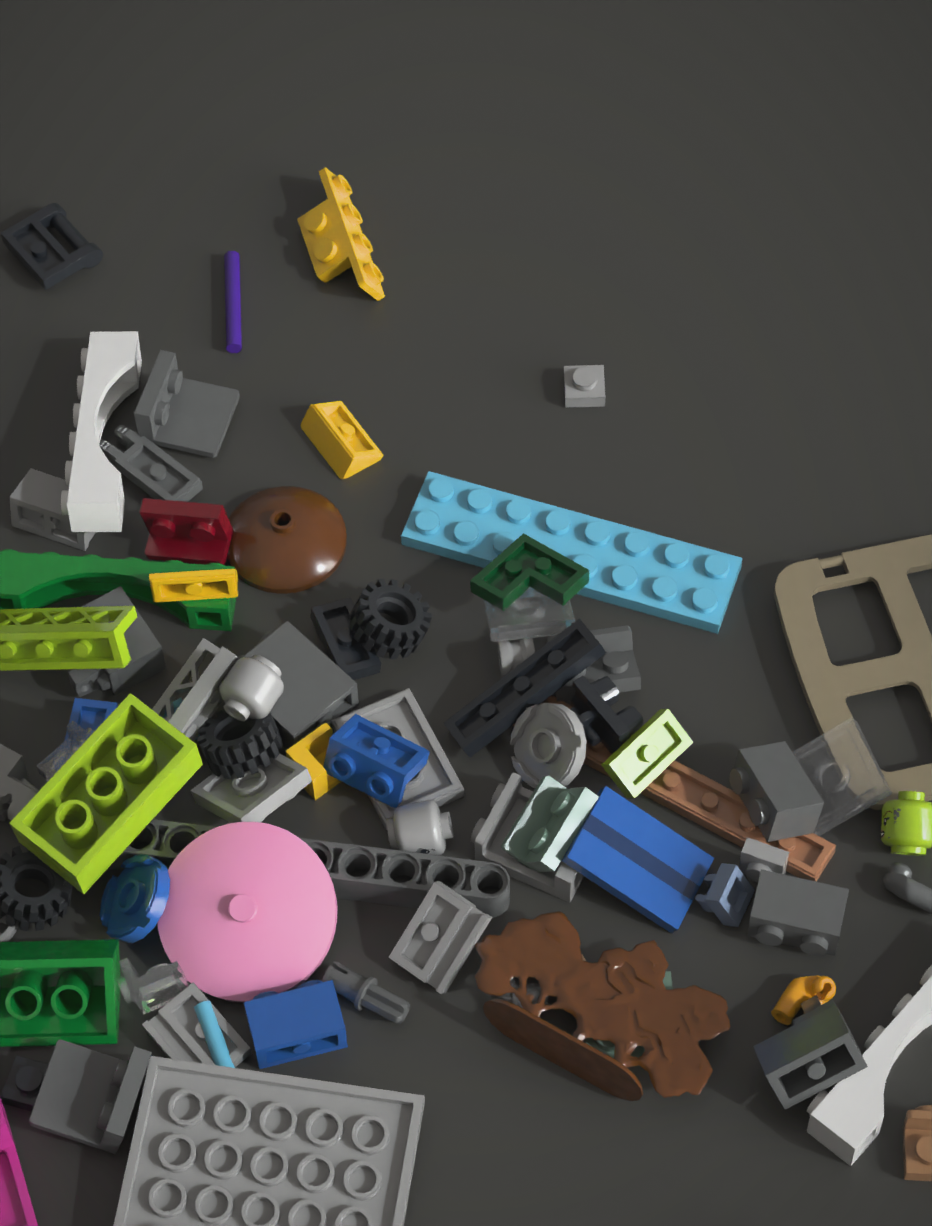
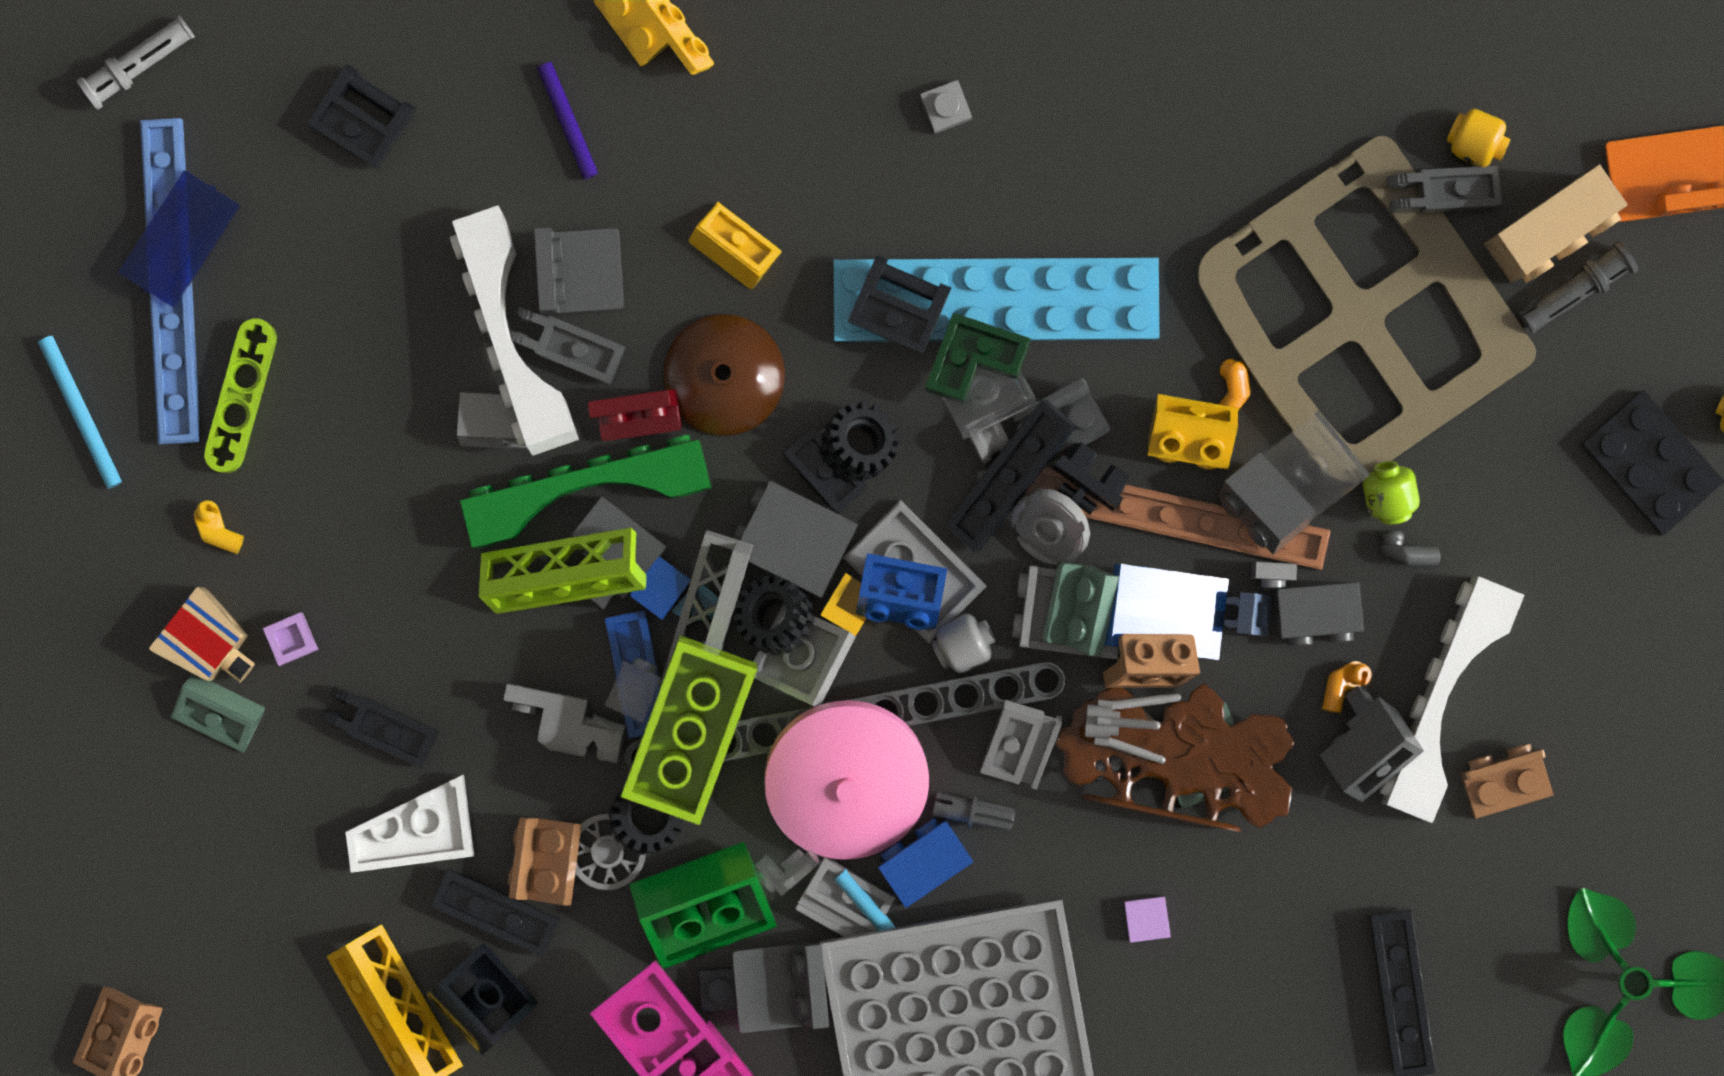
camera: 25 degrees left, 30 degrees up
(135, 898) = (744, 800): blue tile -> none
(142, 679) = (663, 588): none -> blue panel
(194, 585) = (671, 474): yellow slope -> none
(251, 688) = (771, 574): light grey head -> none
(466, 522) = (893, 317): none -> black plate
(510, 1162) = (1147, 919): none -> lavender tile
(536, 932) = (1103, 722): none -> light grey plant
(605, 898) = (1153, 661): none -> medium nougat bracket
(647, 753) = (1141, 505): plate -> none
(721, 708) = (1192, 432): none -> yellow brick
(783, 693) = (1237, 383): none -> light orange arm

